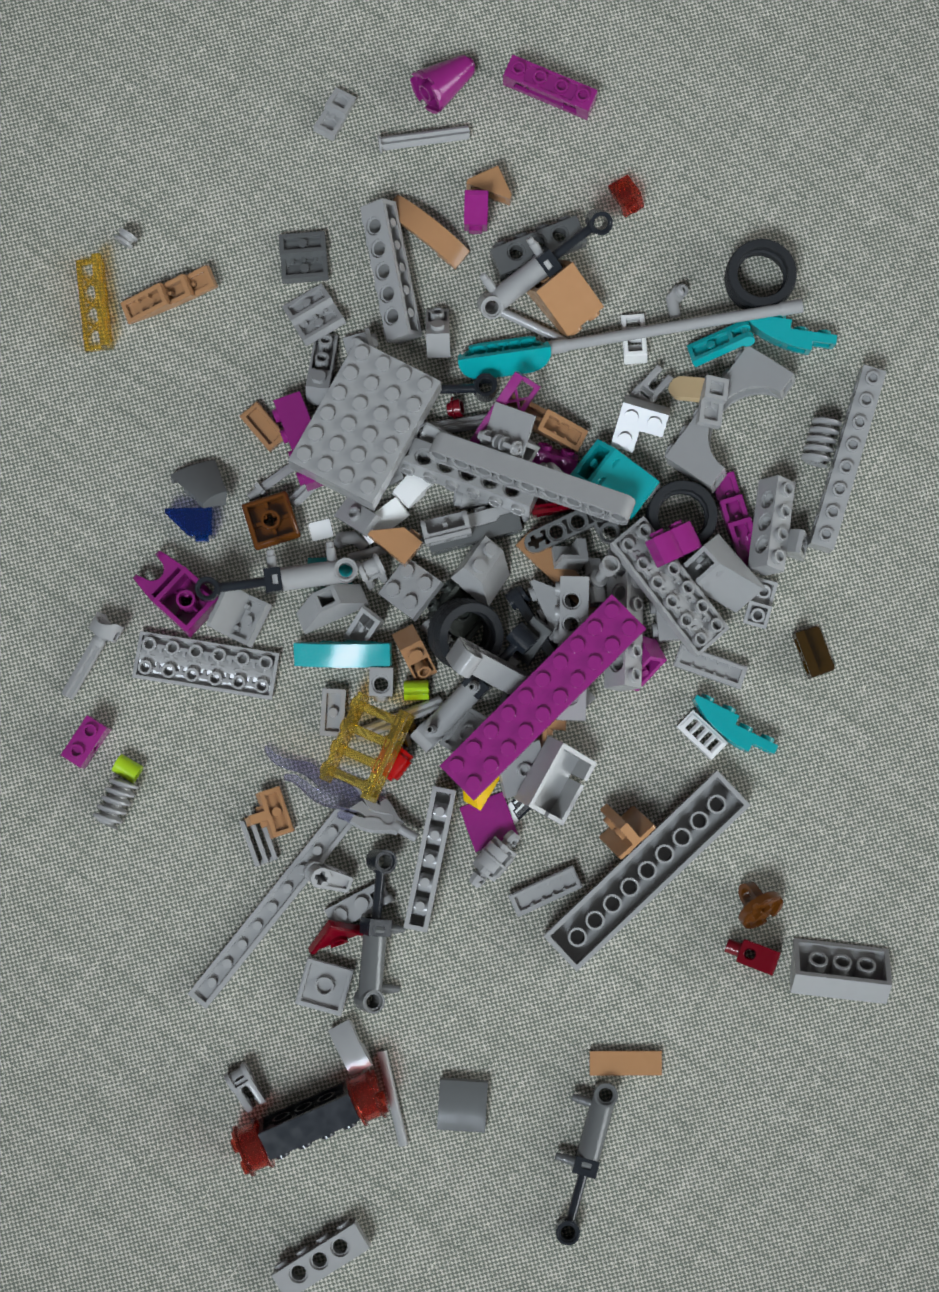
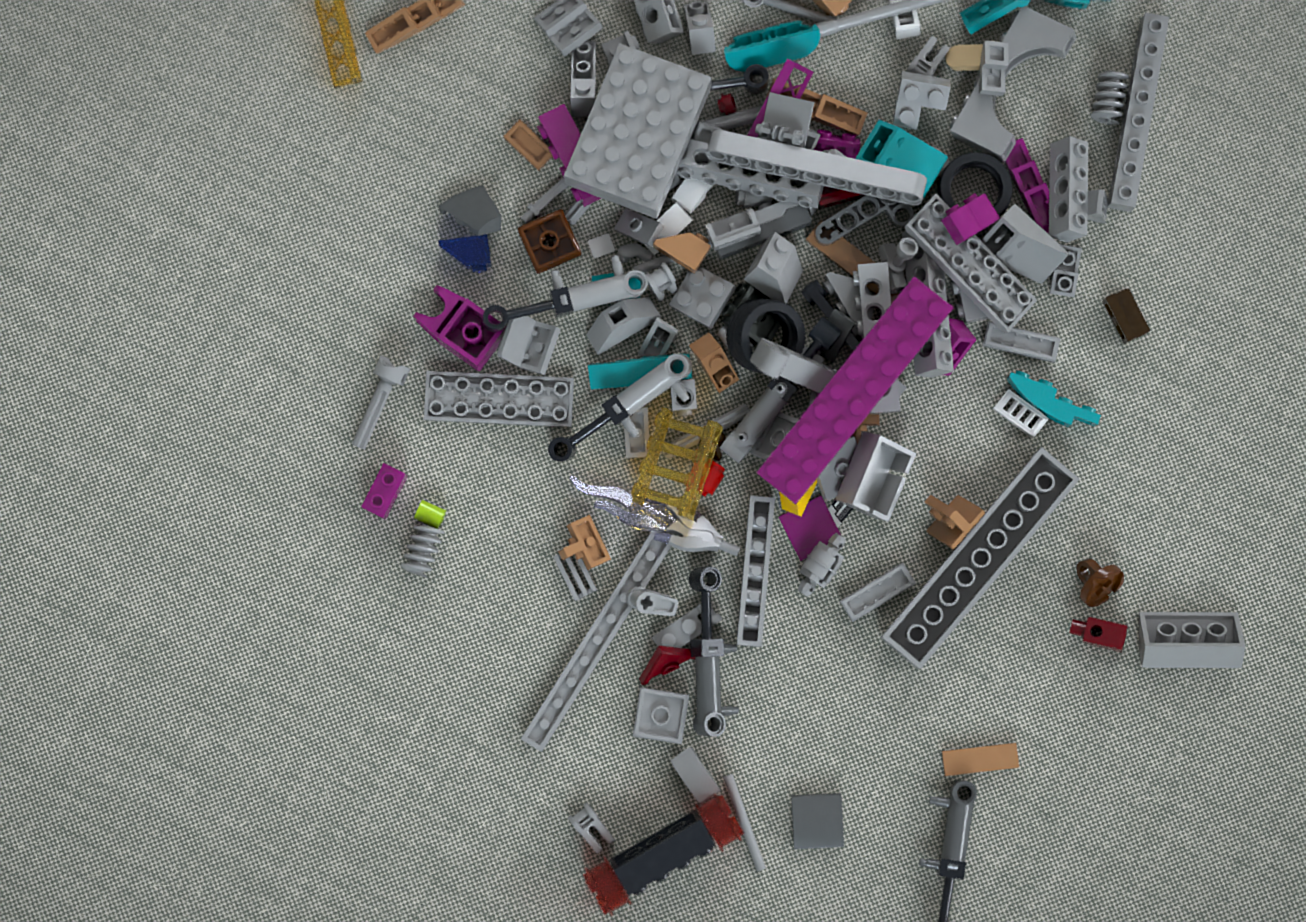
camera: 10 degrees left, 0 degrees up
(327, 682) = (626, 403): none -> light grey piece
(416, 690) = (720, 400): lime piece -> none
(572, 556) = (864, 245): light grey panel -> none

